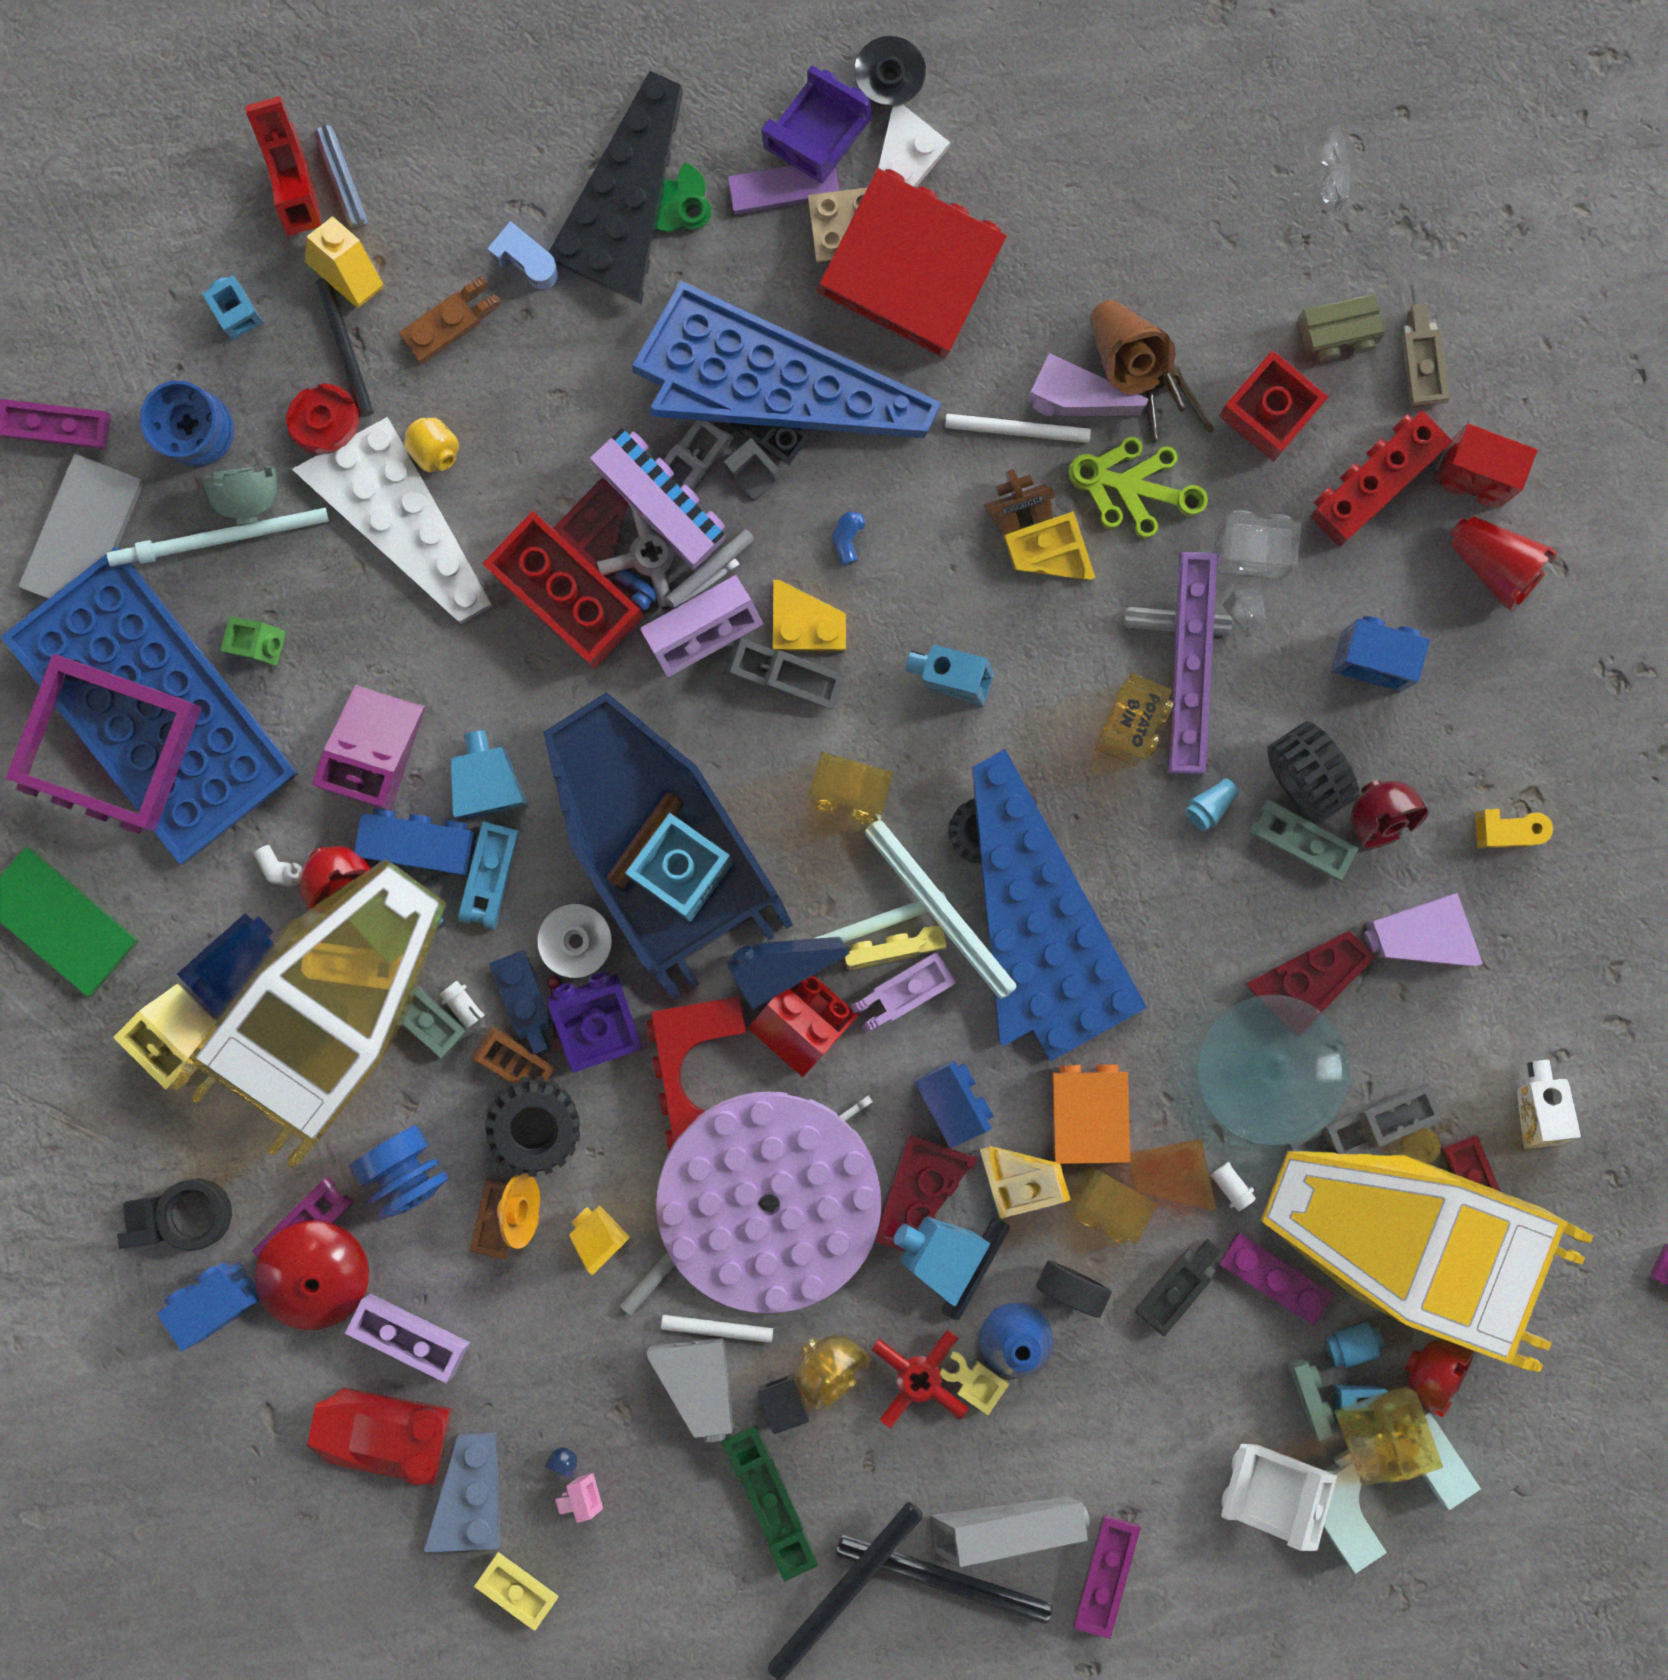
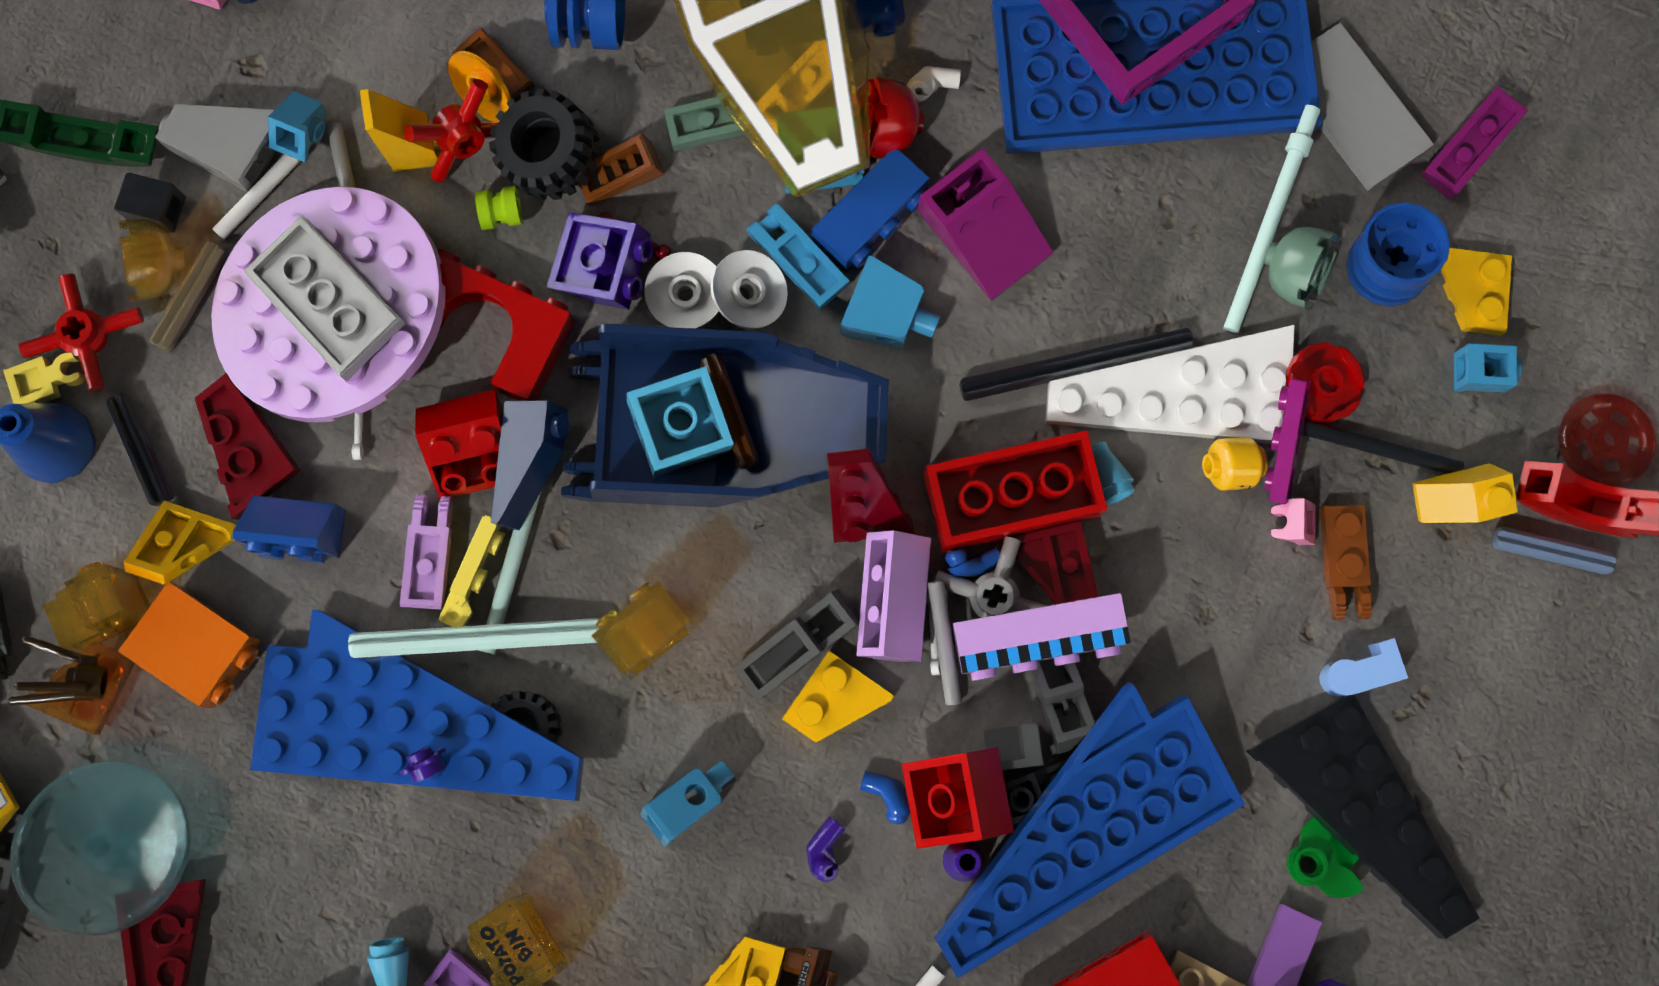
camera: 115 degrees right, 5 degrees down
(170, 349) = (1478, 289): none -> yellow wing
(237, 216) = (1602, 406): none -> clear red plate
(253, 640) = (1154, 189): bright green bracket -> none
(388, 416) = (1287, 440): none -> magenta plate
(432, 611) = (1074, 364): none -> black axle
(443, 370) = (1300, 521): none -> bright pink tile
(461, 1004) = (699, 158): white pin -> none
(499, 528) = (1114, 478): none -> medium azure cone
(523, 999) = (666, 214): dark blue hinge -> none
(533, 881) = (762, 281): none -> white dish
(568, 1198) = (455, 131): none -> red bar
(605, 1129) = (502, 207): none -> lime wheel
(646, 693) = (862, 498): none -> dark red wing
(647, 1331) = (296, 126): none -> dark azure brick
(767, 1201) = (324, 298): none -> light grey tile
(816, 482) = (957, 798): none -> red brick
(835, 1320) = (188, 296): none -> dark tan axle
(856, 460) = (952, 856): none -> dark purple cone
(921, 558) = (821, 853): none -> dark purple arm
(941, 1255) = (167, 424): dark azure torso -> none
(1054, 872) = (424, 763): none -> dark purple plate
(1073, 1289) = (47, 519): black tyre -> none
(1169, 1169) = (84, 682): none -> dark brown plant
(1233, 1187) = (31, 734): white pin -> none

